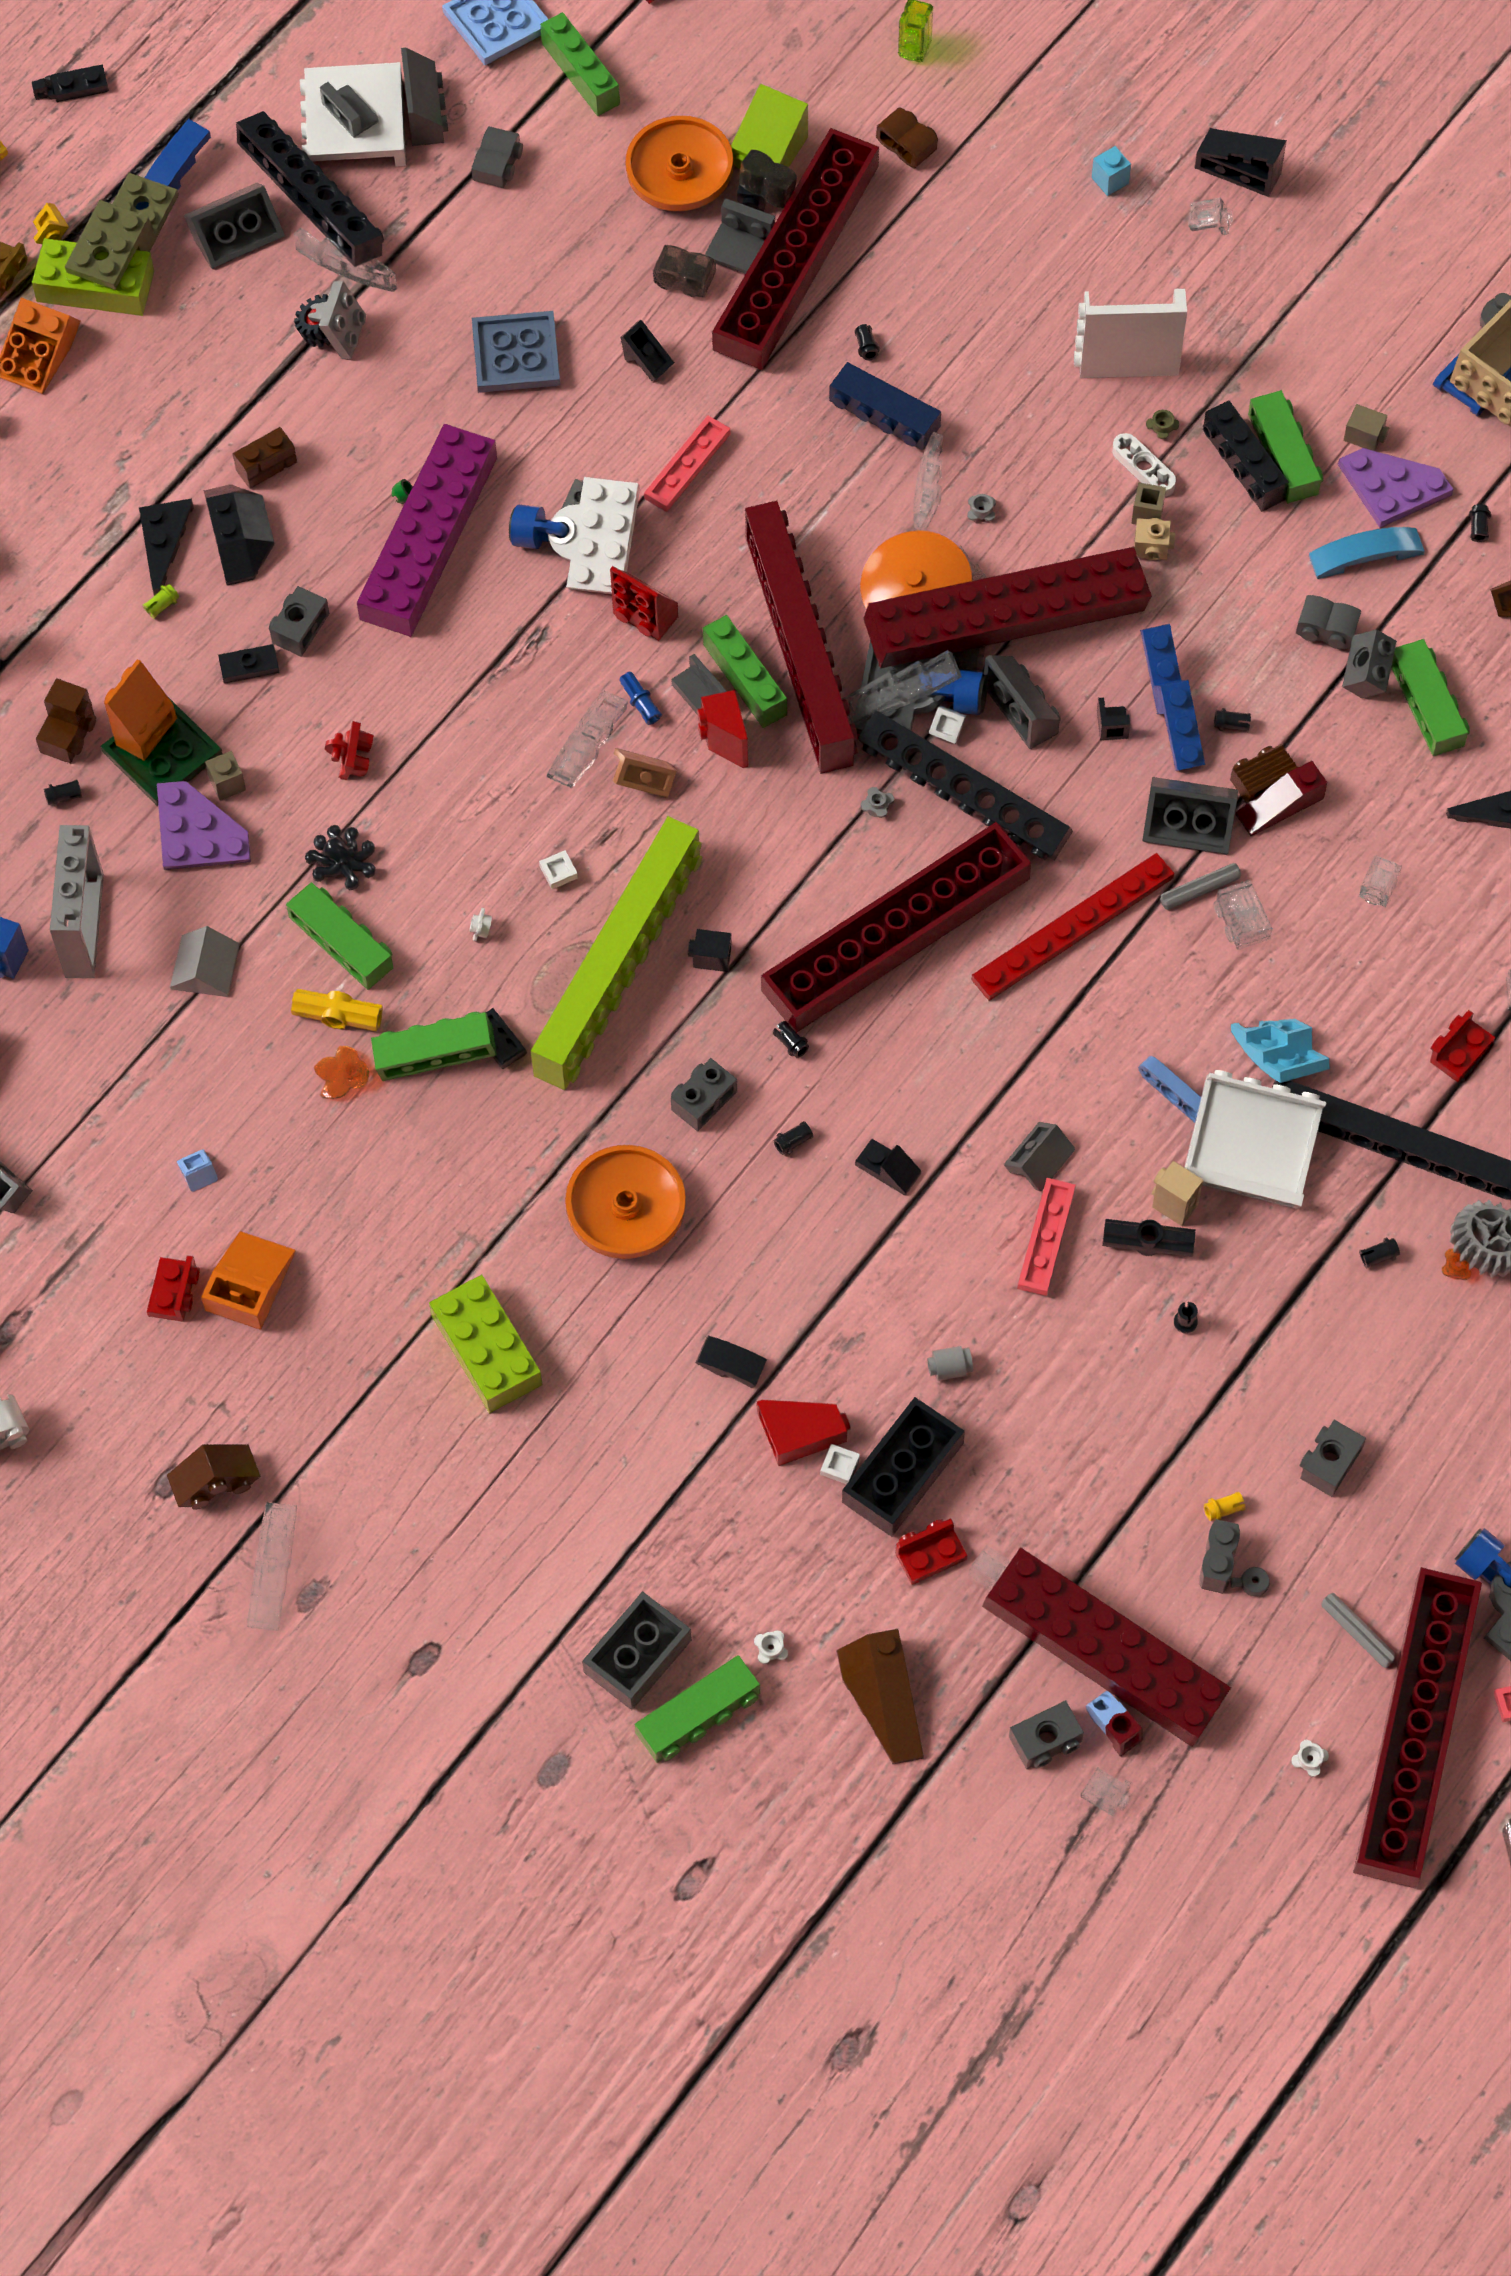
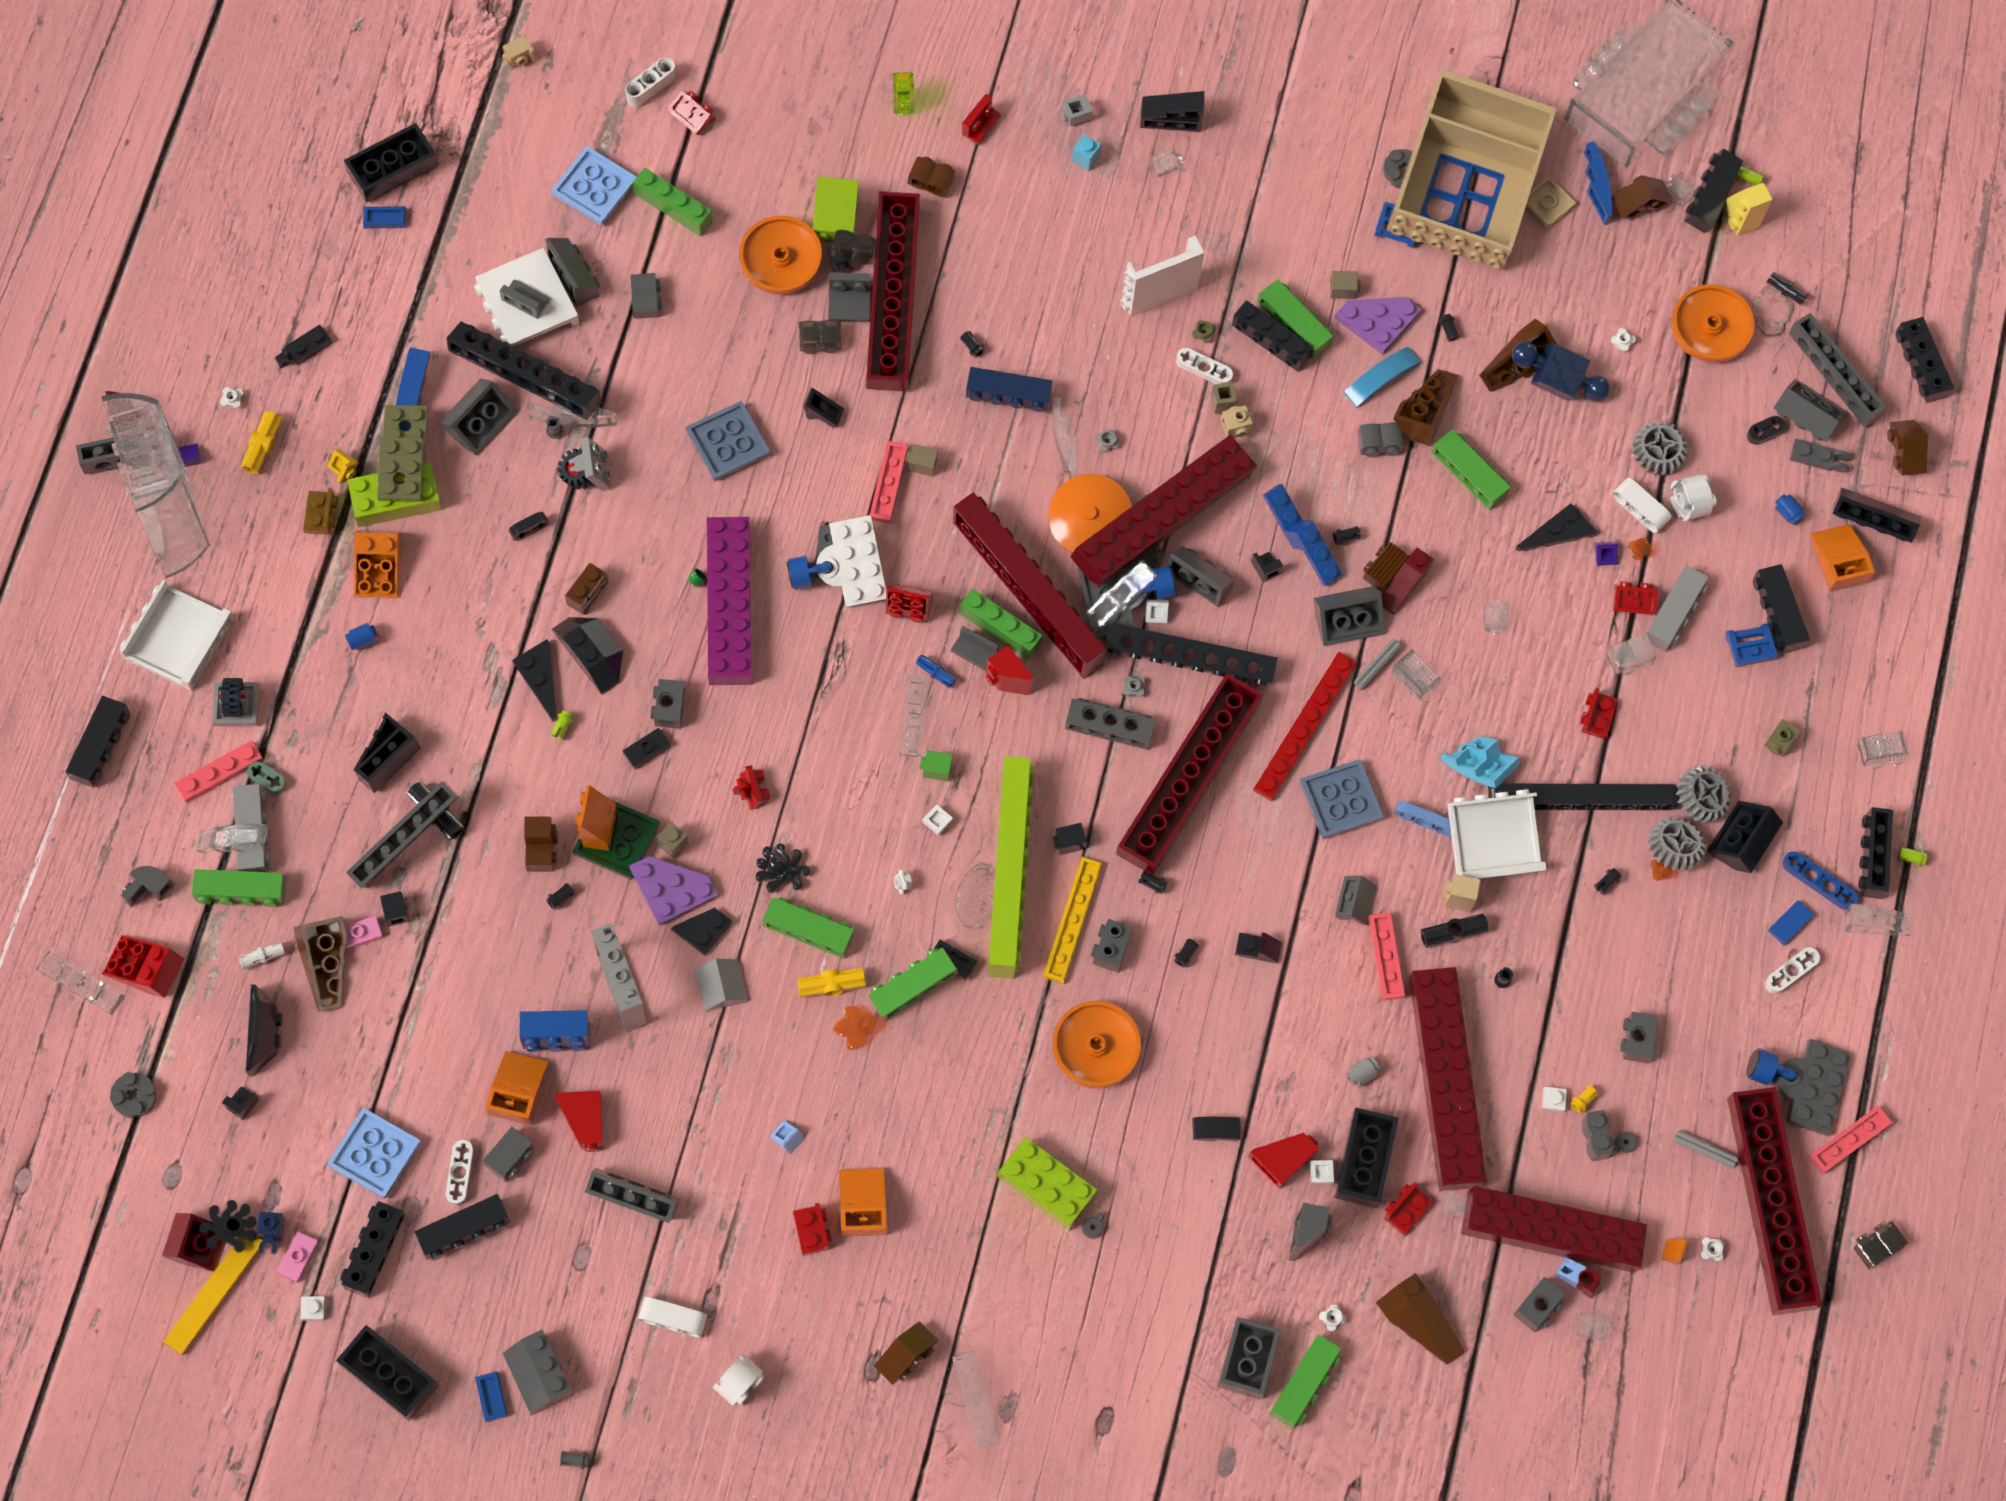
camera: 30 degrees left, 5 degrees up
(214, 893) = (703, 929): none -> black wing
(232, 365) = (528, 526): none -> black beam
(316, 269) = (554, 429): none -> dark grey pin
(525, 1415) = (1095, 1222): none -> dark grey piece
(587, 806) = (936, 765): none -> bright green brick
(644, 773) = (966, 726): nougat panel -> none
(670, 1048) = (1072, 920): none -> yellow tile
(740, 451) = (922, 459): none -> dark tan brick
(782, 1522) = (1310, 1226): none -> dark grey slope
(854, 863) = (1099, 728): none -> dark grey brick
(997, 91) = (980, 120): none -> red bracket
(1055, 1411) = (1447, 1079): none -> dark red brick
(1077, 1028) = (1341, 799): none -> sand blue plate
(1122, 120) = (1080, 107): none -> light grey brick
(1185, 1492) = (1554, 1099): none -> white plate
(1258, 1739) = (1674, 1250): none -> orange slope
(1369, 663) = (1423, 460): dark grey brick -> none
(1405, 605) = (1424, 409): none -> reddish brown wedge

